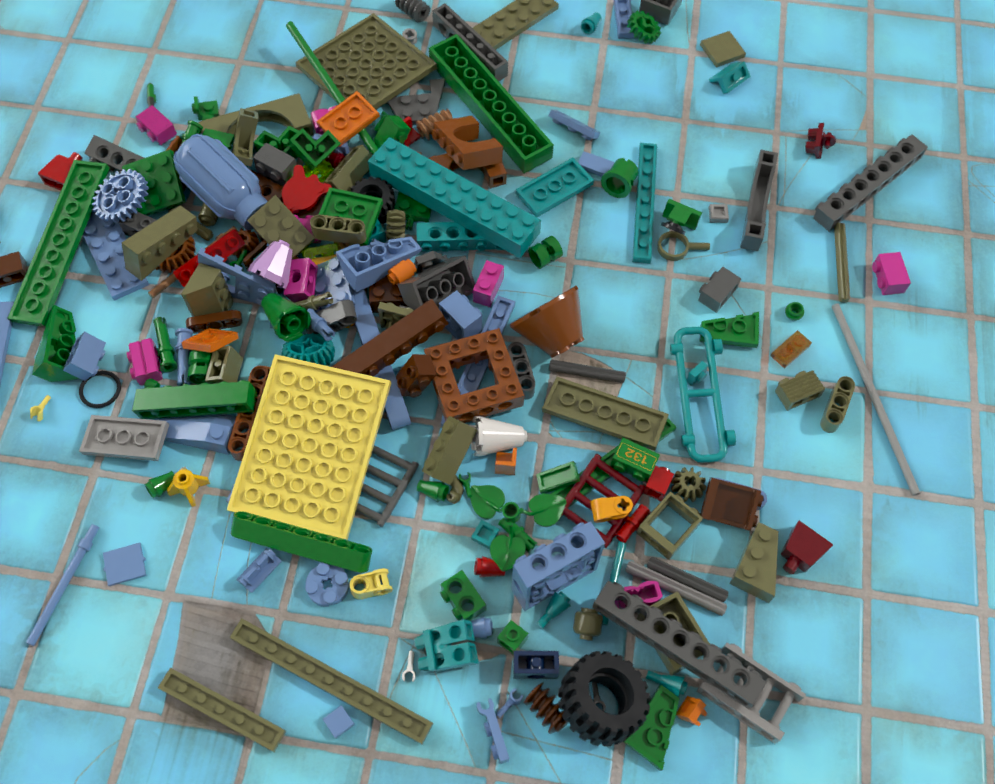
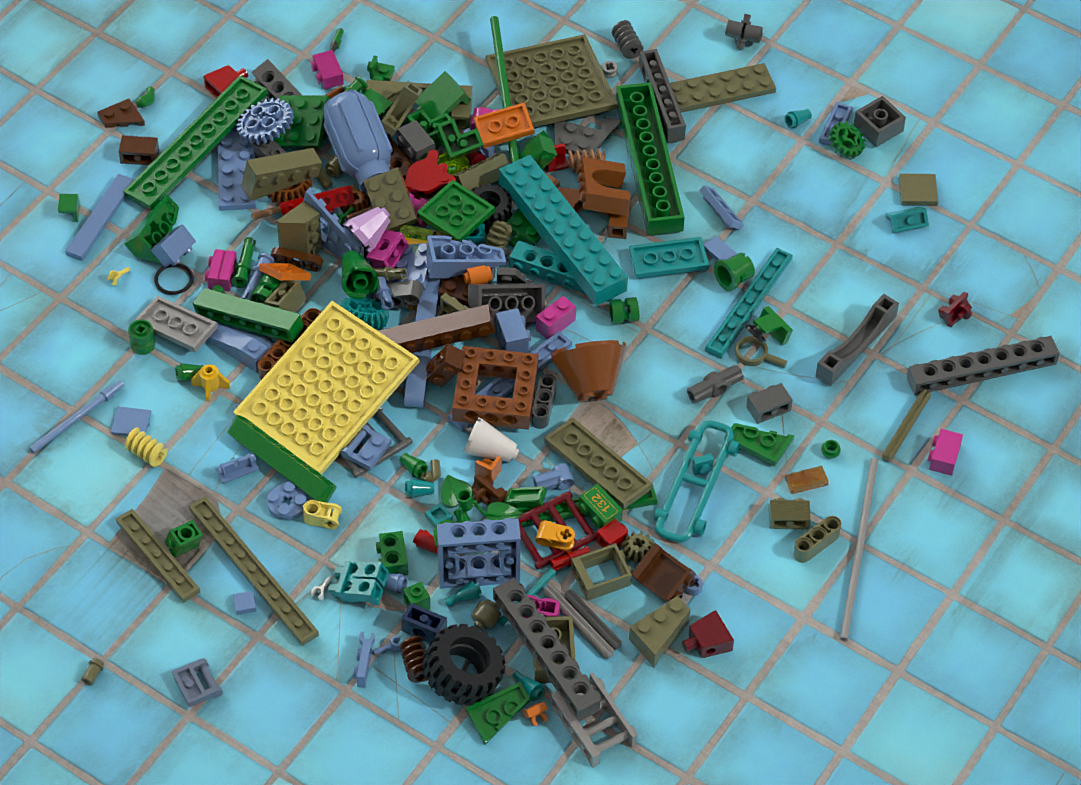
camera: 25 degrees right, 10 degrees down
(94, 467) = (141, 337): none -> green wheel
(153, 591) = (146, 447): none -> light yellow piece
(244, 672) = (183, 538): none -> green head
(277, 112) = (441, 96): none -> green panel
(326, 228) = (439, 218): olive beam -> none
(385, 495) = (370, 452): none -> medium blue plate
(449, 450) = (441, 435): olive brick -> none
(450, 512) = (418, 488): none -> teal cone
(466, 483) = (444, 471): green hand -> none
(518, 489) = (485, 492): none -> reddish brown hips
(576, 443) = (558, 477): none -> medium blue piece
(587, 371) = (604, 425): dark grey axle -> none
(662, 290) = (715, 384): none -> dark grey piece
(718, 213) = (814, 339): light grey tile -> none

